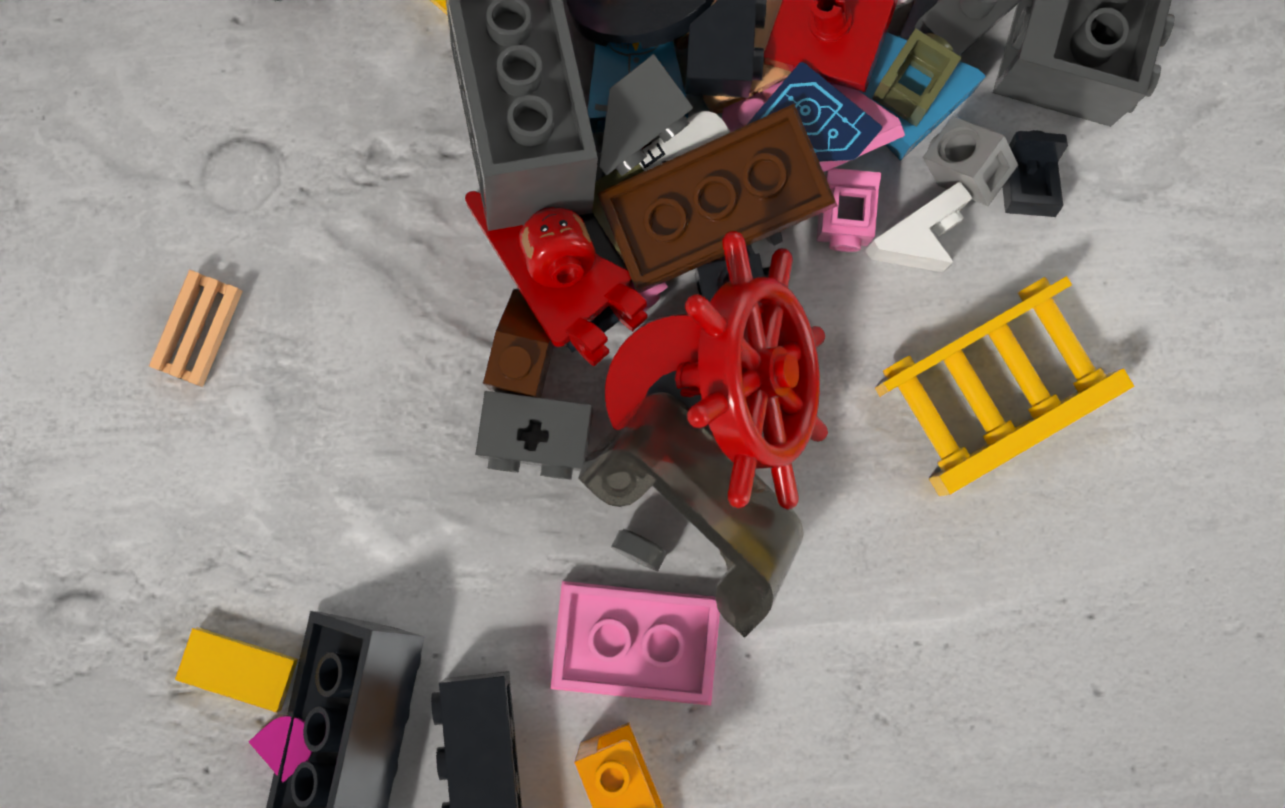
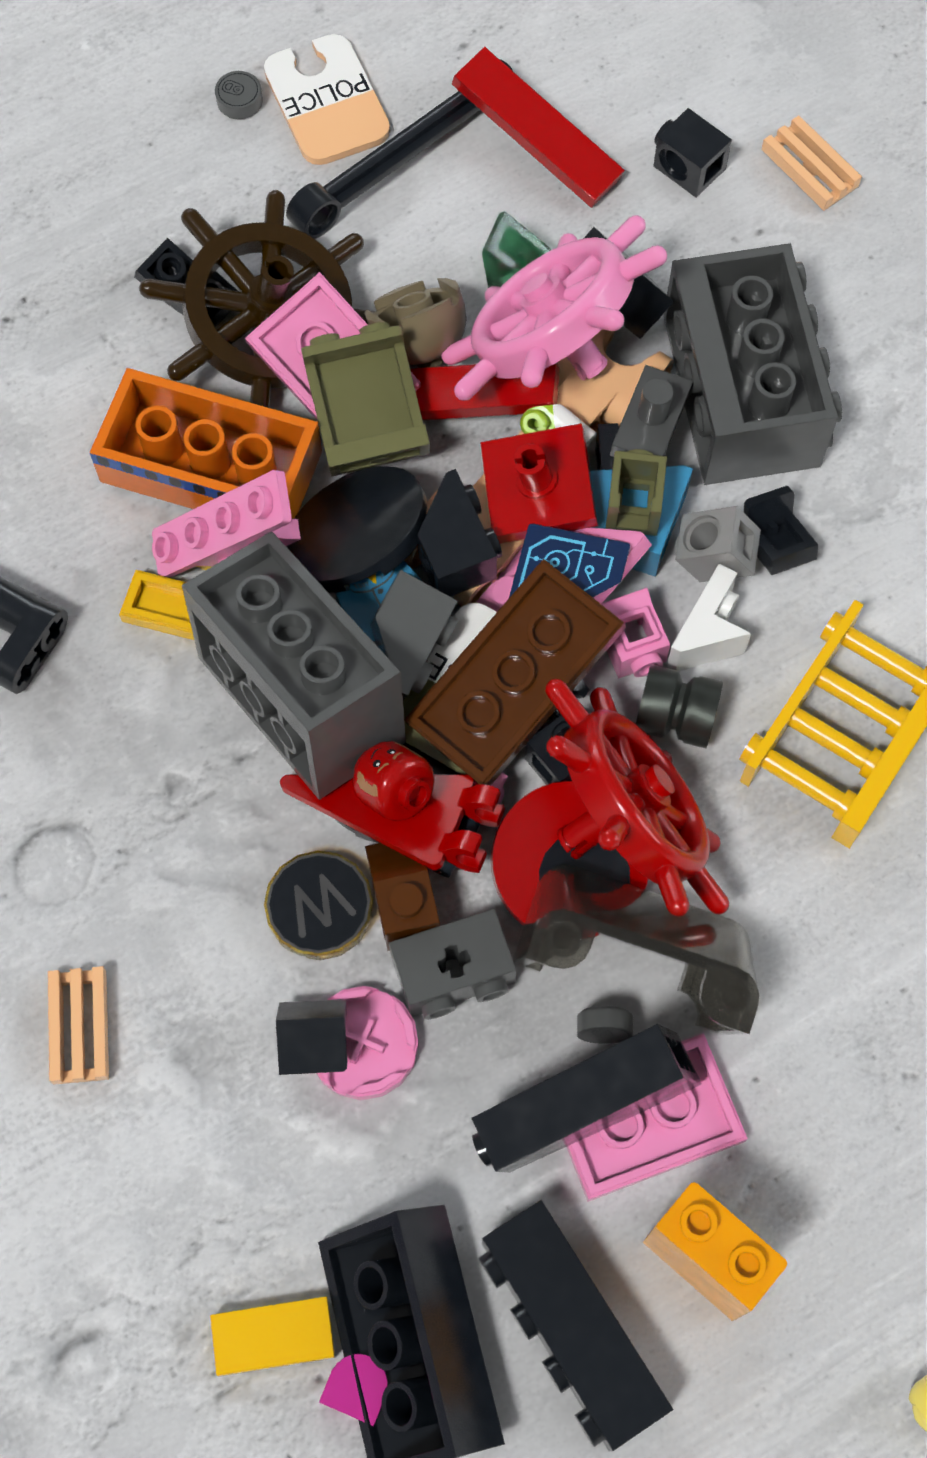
camera: 25 degrees left, 15 degrees down
(380, 438) = (311, 1036): none -> black panel
(427, 461) = (379, 1045): none -> bright pink tile
(447, 321) = (319, 905): none -> black tile
(585, 612) = (585, 1099): none -> black slope
(852, 296) = (679, 706): none -> pearl dark grey wheel

